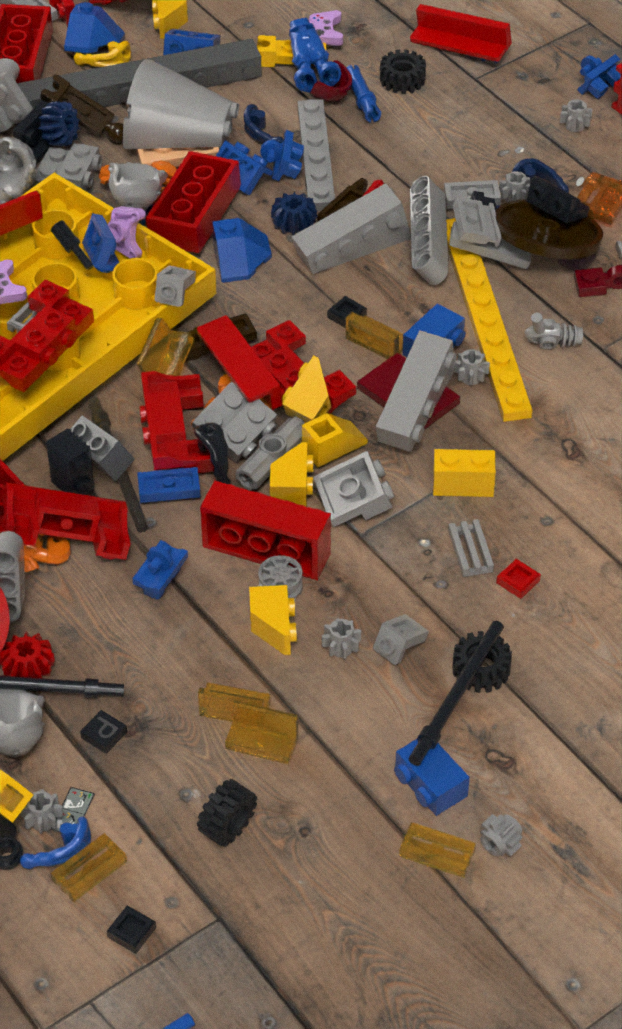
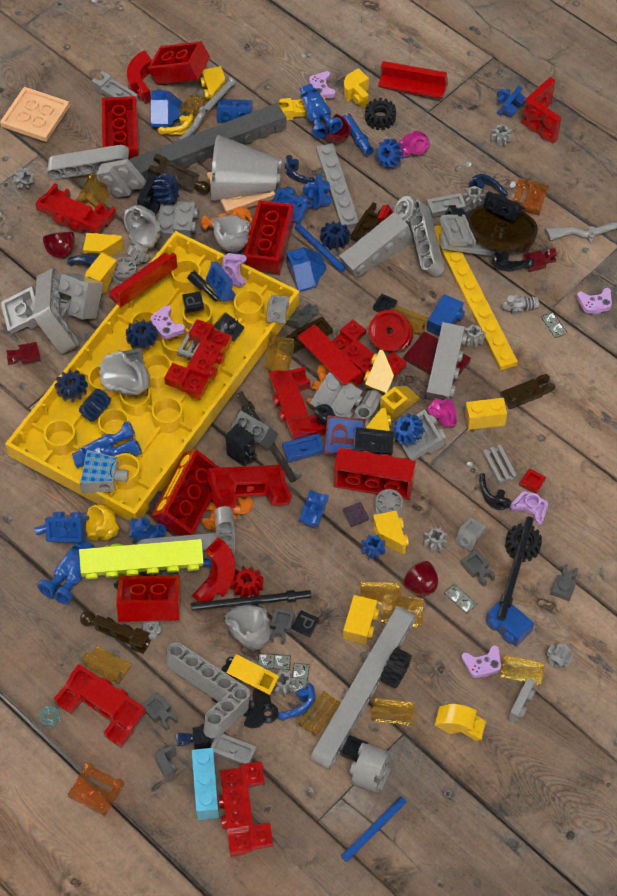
camera: 10 degrees left, 10 degrees up
(38, 779) = (274, 661): none -> light grey sticker
(50, 263) = (193, 302): none -> black tile
(64, 724) = (281, 623): none -> dark grey plate
(98, 299) = (229, 326): none -> black bracket
(129, 31) = (195, 106): none -> clear yellow tile
(144, 38) = (205, 109): none -> light grey piece
(146, 957) = (371, 767): none -> light grey brick
(162, 840) = (362, 688): none -> light grey beam
(191, 736) = (360, 620): none -> yellow brick
(208, 881) = (393, 711): none -> clear yellow panel
(216, 310) = (301, 317): none -> dark grey plate
(226, 588) = (355, 514): none -> tile
(233, 464) = (340, 433): none -> piece
(239, 635) = (373, 547): none -> blue gear
(269, 228) = (311, 239): none -> blue bar
(275, 480) = (374, 441): none -> black bracket
(305, 691) = (421, 579): none -> dark red helmet
(314, 904) = (460, 718): none -> yellow brick
(333, 474) = (414, 432): none -> blue gear
(342, 340) = (380, 331): none -> red wheel
(362, 731) = (460, 598): none -> light grey sticker
(373, 832) = (483, 665): none -> lavender piece
(375, 34) = (355, 88): none -> yellow brick
(398, 459) = (444, 412): none -> dark pink hair
(399, 684) = (477, 565): none -> dark grey plate
(402, 118) = (395, 153): none -> blue gear
(407, 186) = (402, 204): none -> light grey gear
(417, 902) = (519, 708): none -> light grey plate
(441, 112) = (415, 143): none -> dark pink hair
(453, 599) = (497, 502): none -> black piece
(509, 610) = (531, 504): none -> lavender piece
(536, 734) = (564, 584): none -> dark grey plate
(537, 277) = (501, 262): none -> black piece
(539, 453) = (527, 391): none -> dark brown hinge
(602, 370) = (554, 324): none -> light grey sticker

